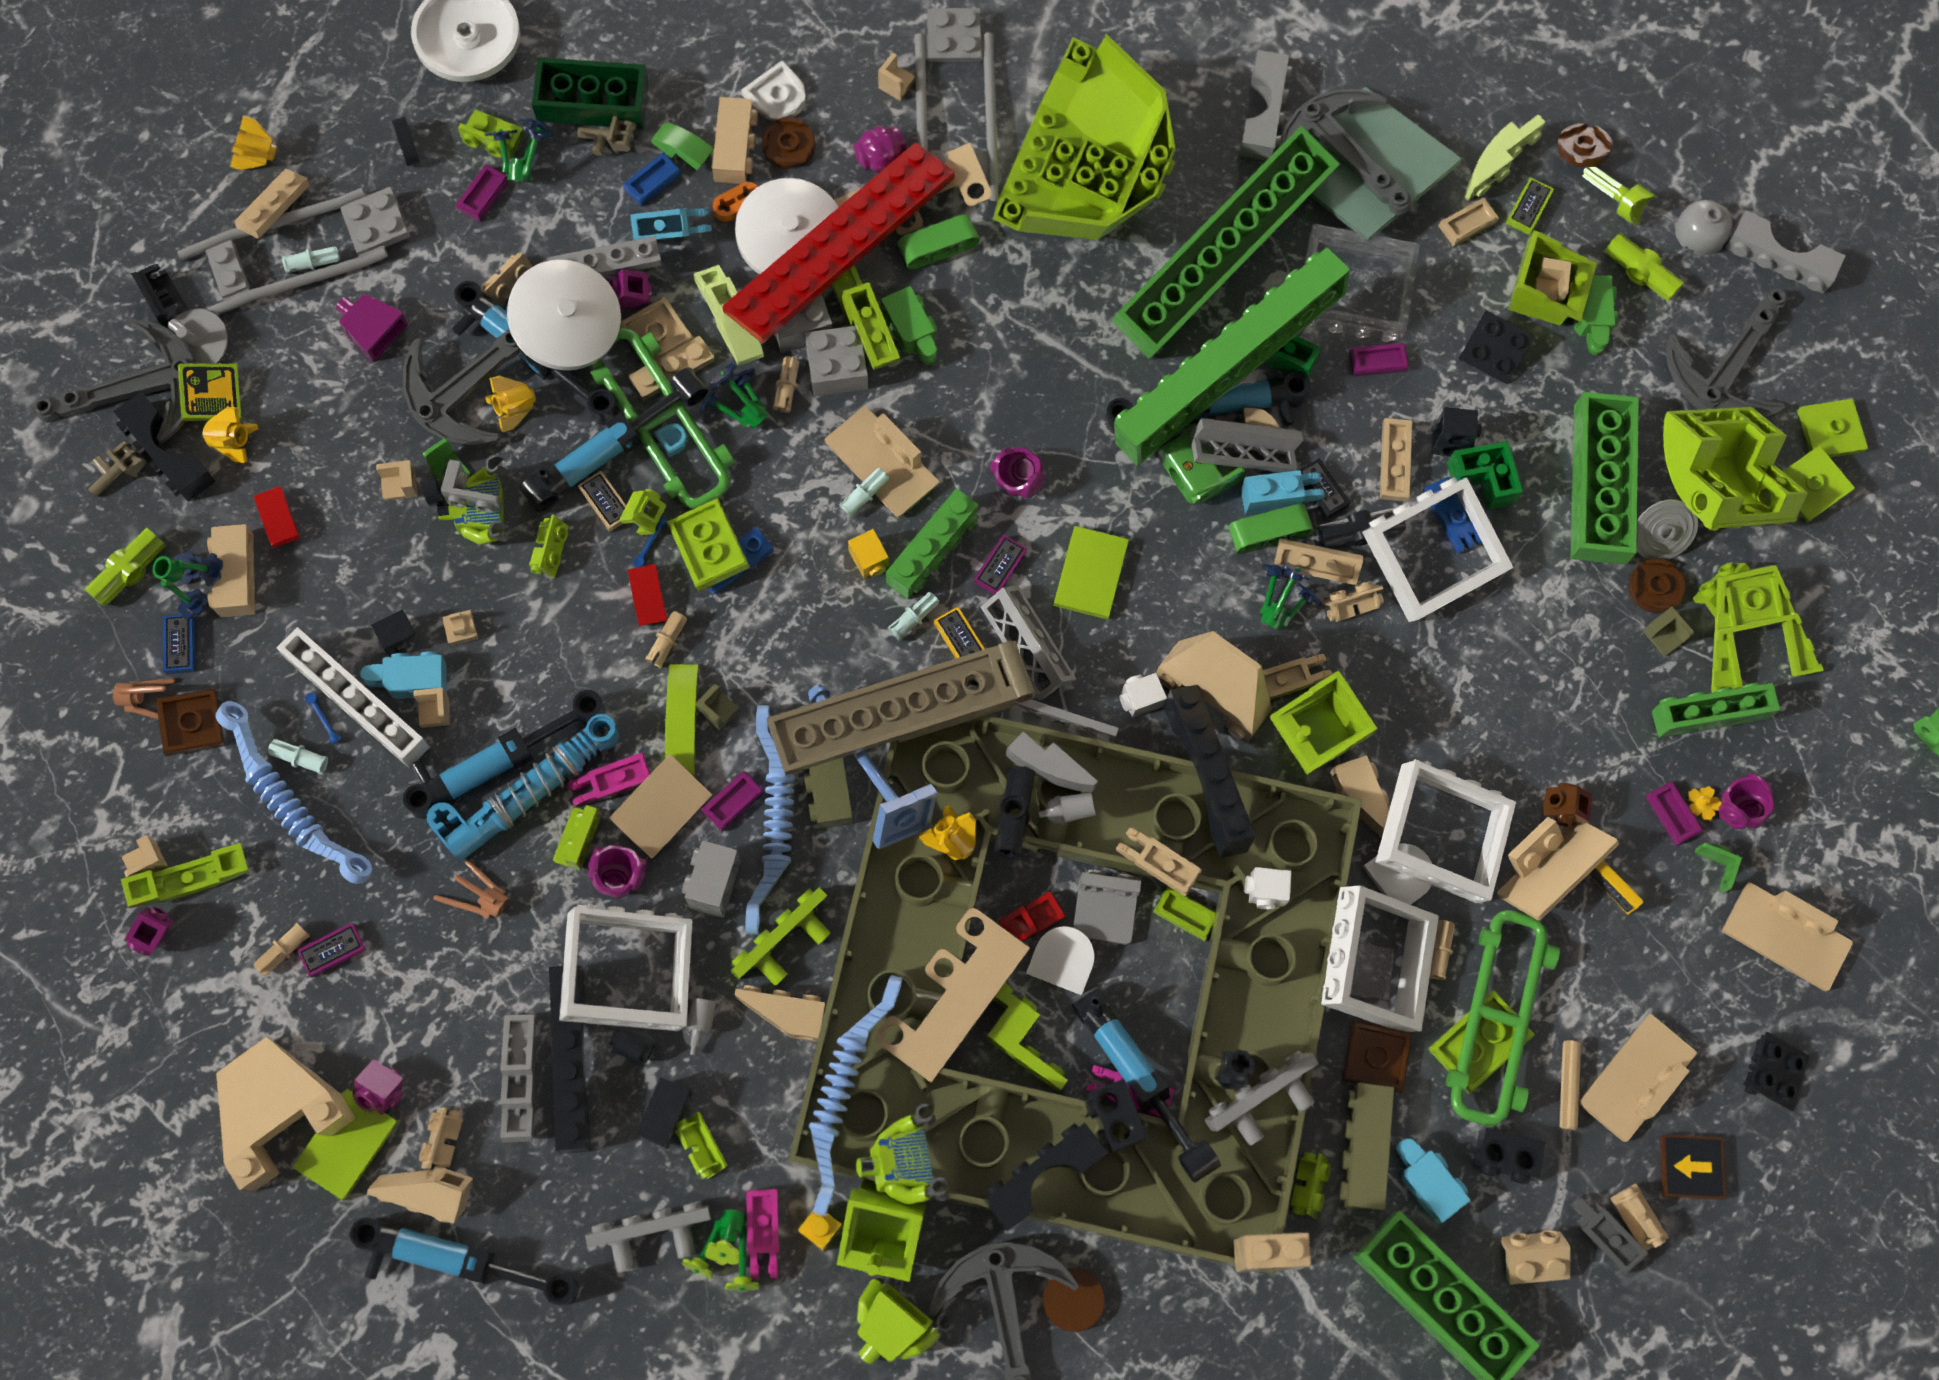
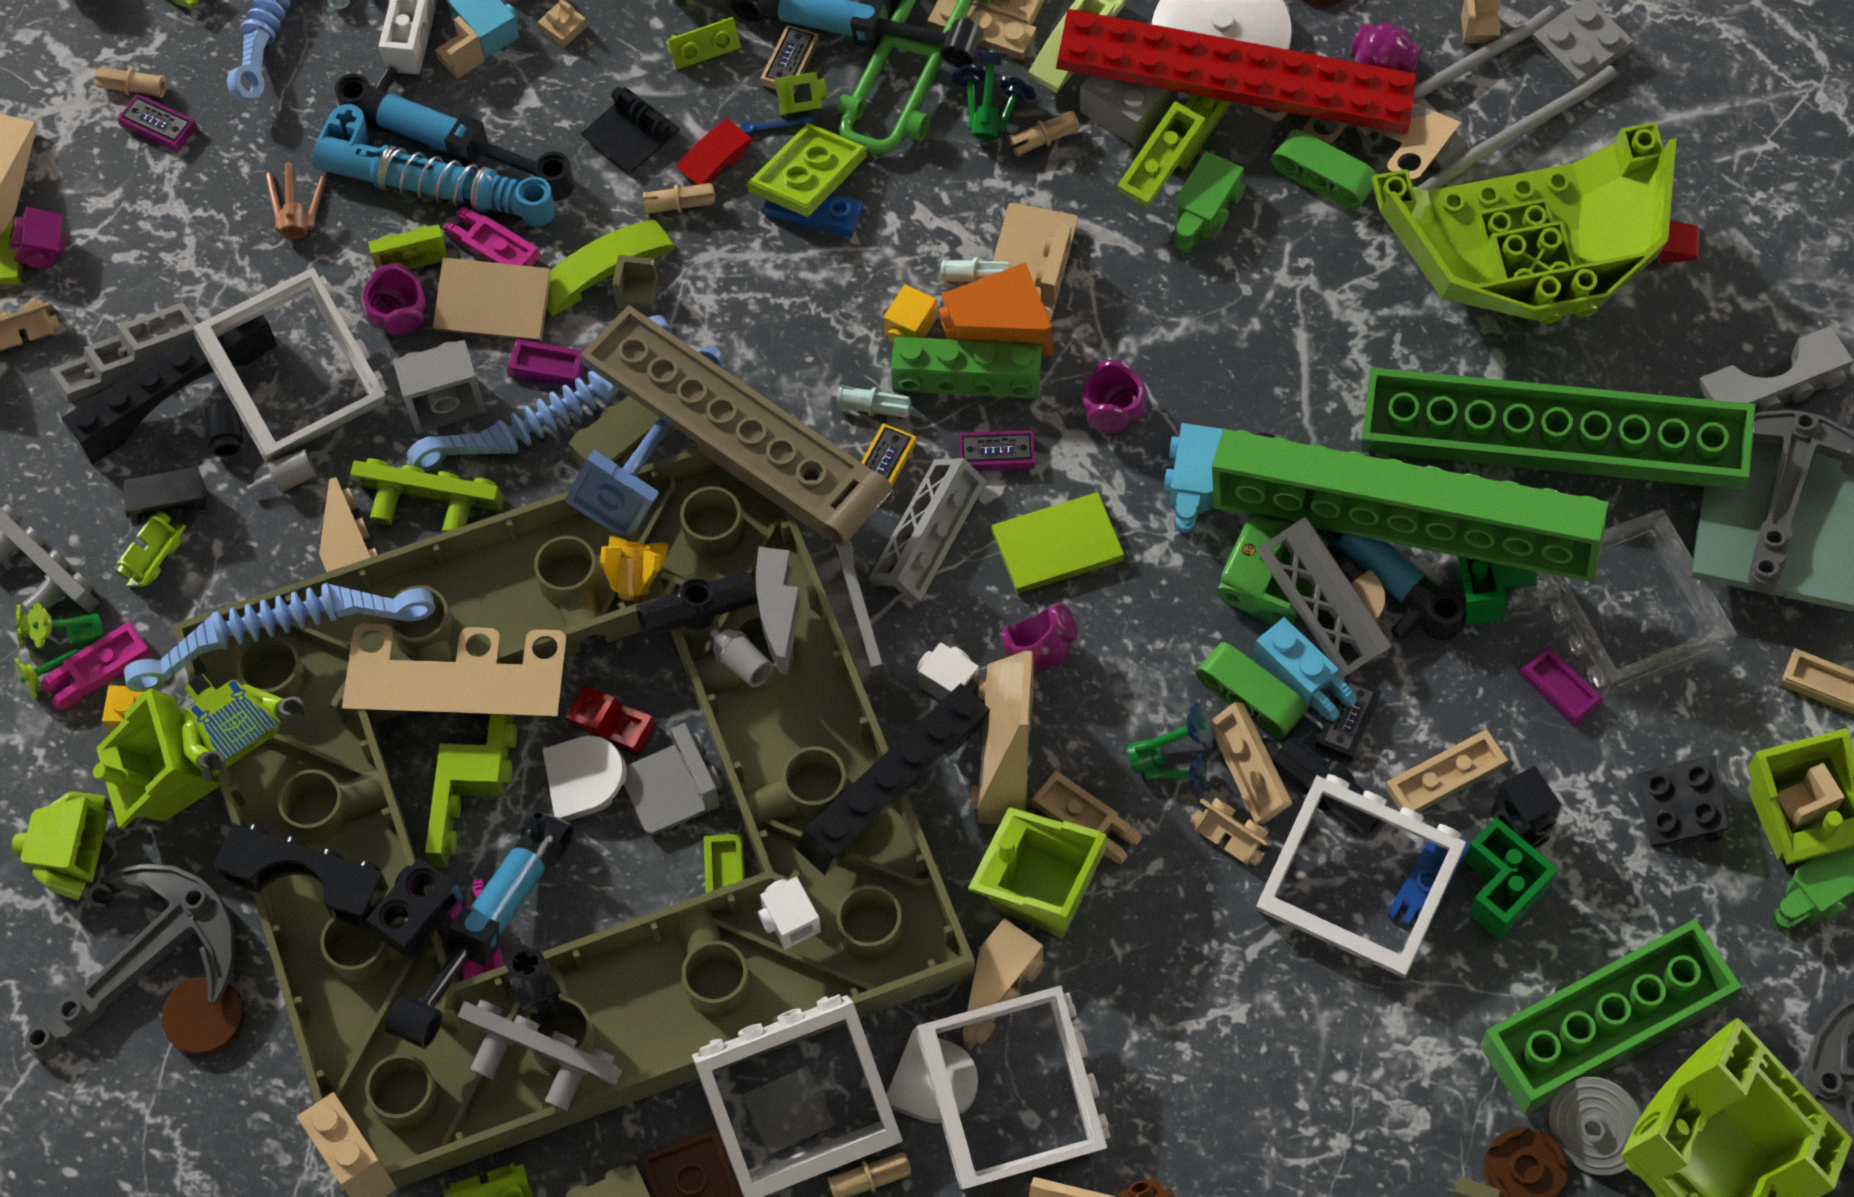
camera: 65 degrees right, 10 degrees down
(586, 637) = (629, 130): none -> black hinge
(672, 438) = (903, 74): medium azure tile -> none
(836, 361) = (1099, 155): light grey brick -> none
(919, 496) = (998, 310): none -> orange slope
(1102, 461) = (1191, 478): none -> medium azure hinge
(1158, 624) = (1044, 634): none -> magenta hair
(1161, 862) = (742, 787): tan hinge -> none

